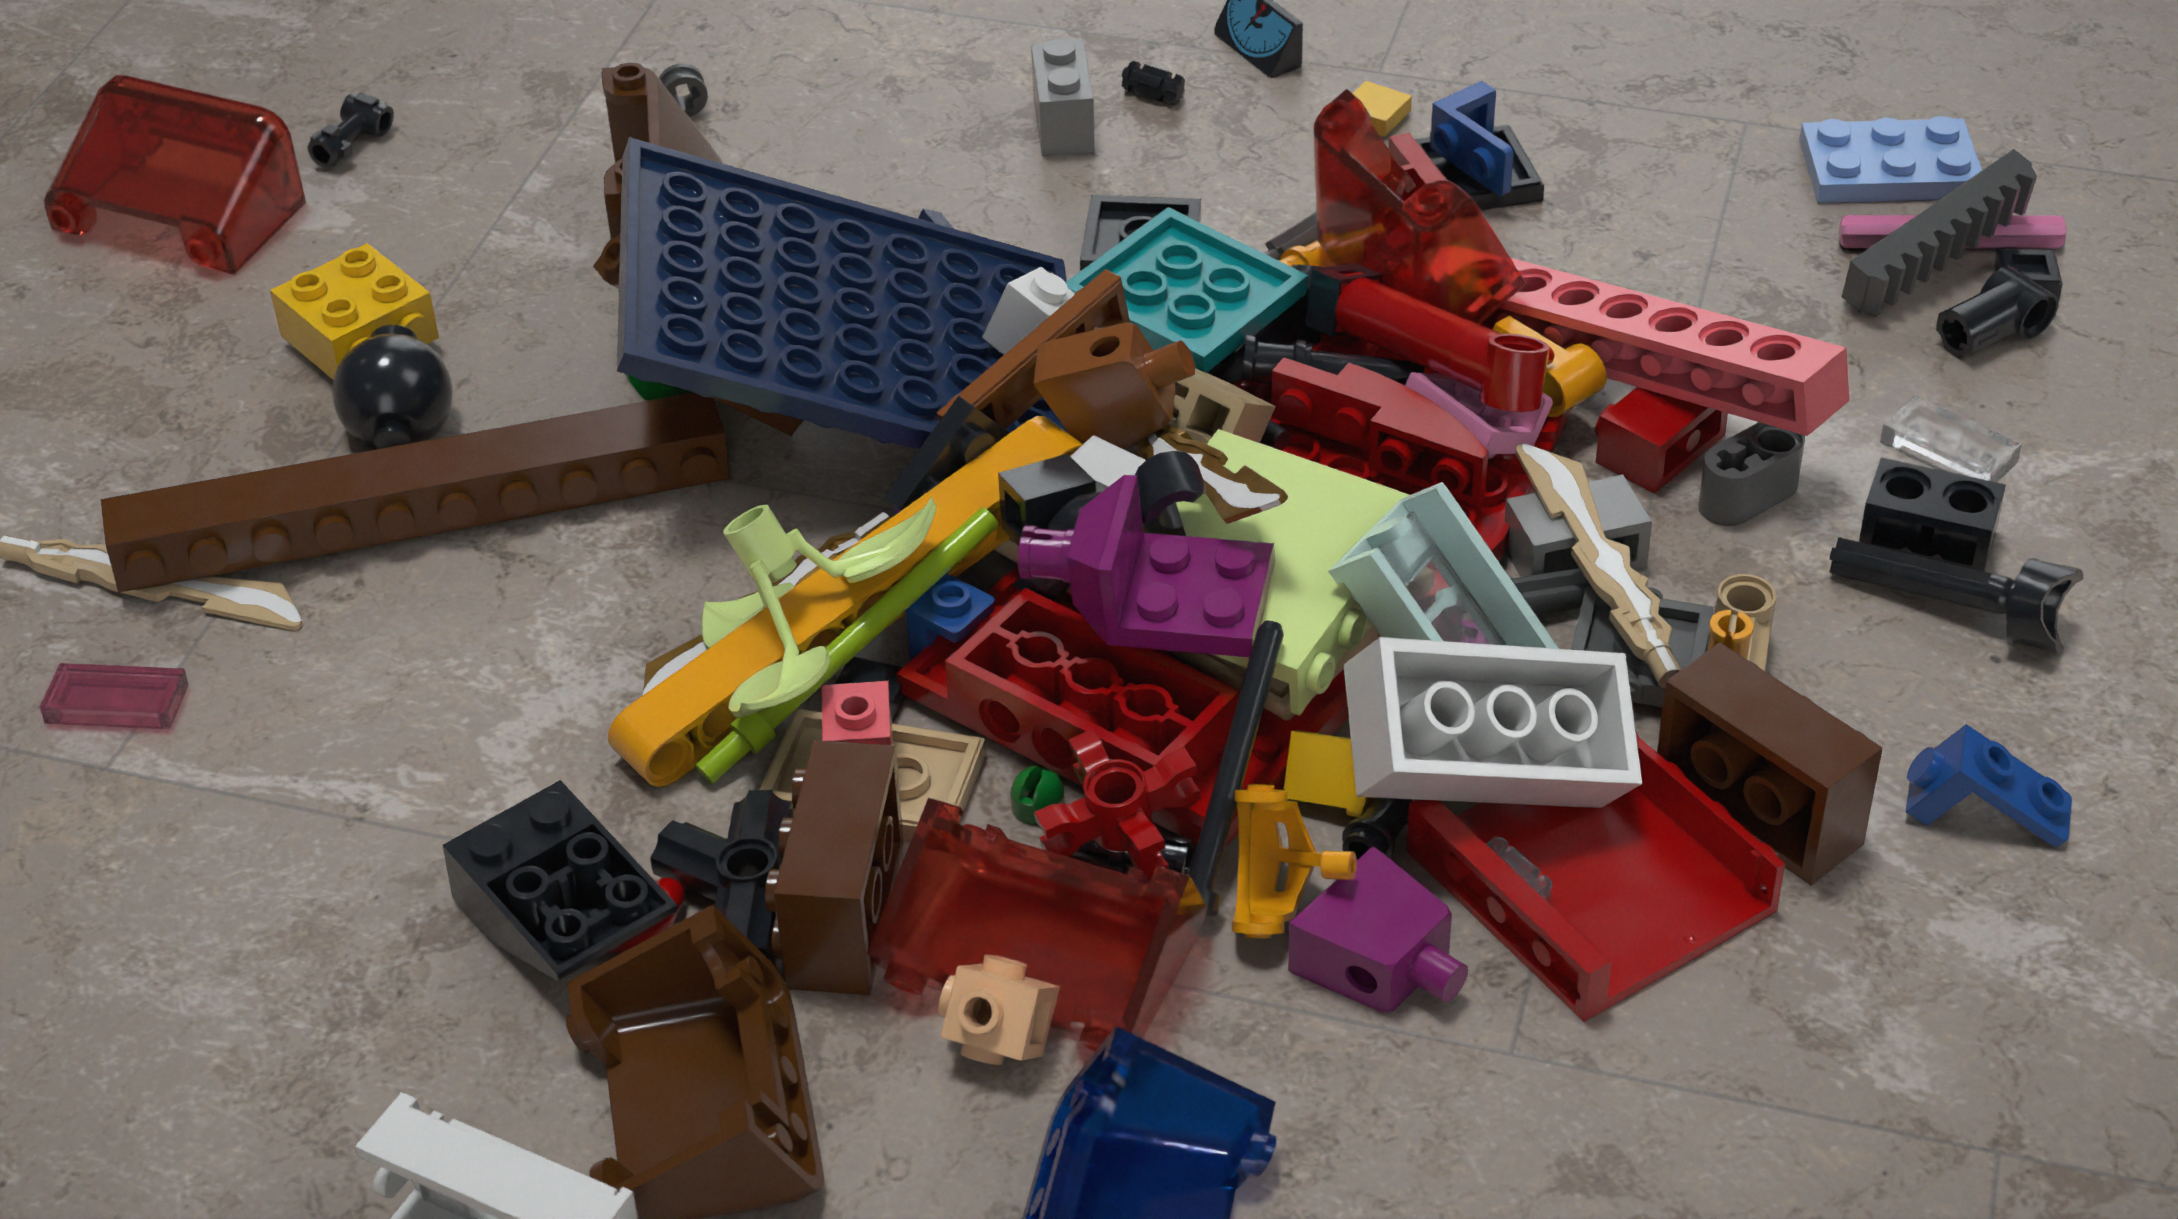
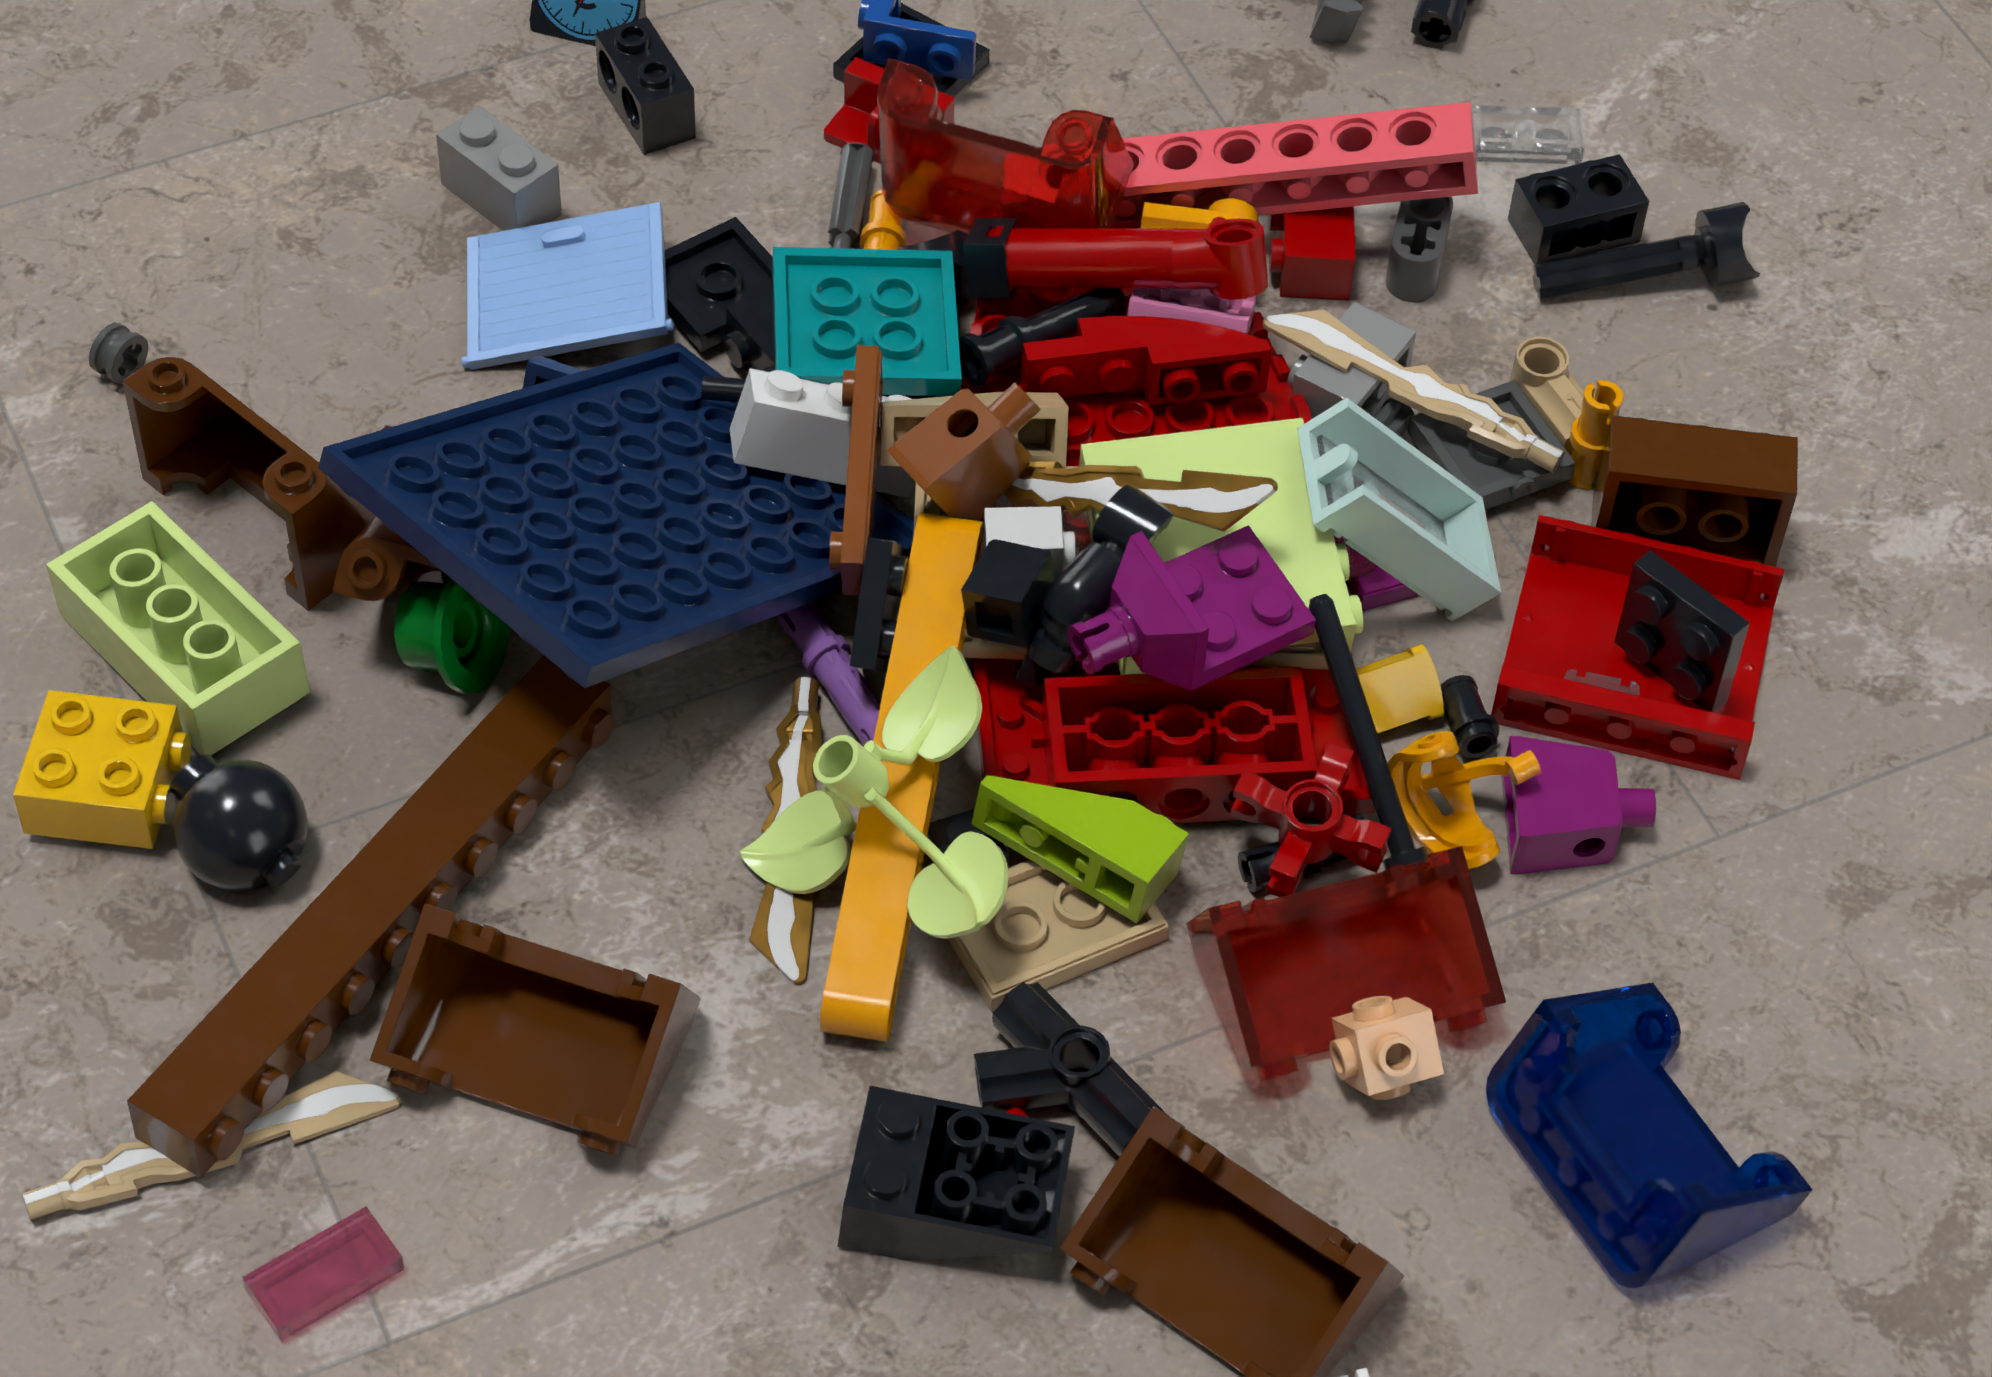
camera: 45 degrees left, 10 degrees up
(414, 617) = (532, 1029): none -> reddish brown windscreen
(504, 261) = (179, 627): none -> yellowish green brick
(757, 729) = (923, 948): lime bar -> none
(836, 866) = (1157, 1007): reddish brown brick -> none
(857, 713) = (1044, 892): coral brick -> none
(941, 726) = (1086, 838): none -> lime slope
(946, 610) = (996, 739): blue bracket -> none
(1030, 188) = (566, 286): none -> light blue piece
(1046, 789) = (1203, 867): green hinge -> none
(1153, 83) = (546, 114): black piece -> none
(1237, 90) = (645, 85): none -> black brick
(1384, 105) = (766, 41): yellow tile -> none
(1491, 723) = (1521, 584): white brick -> none
(1613, 852) = (1681, 632): none -> black plate
(1975, 764) = (1820, 411): blue bracket -> none

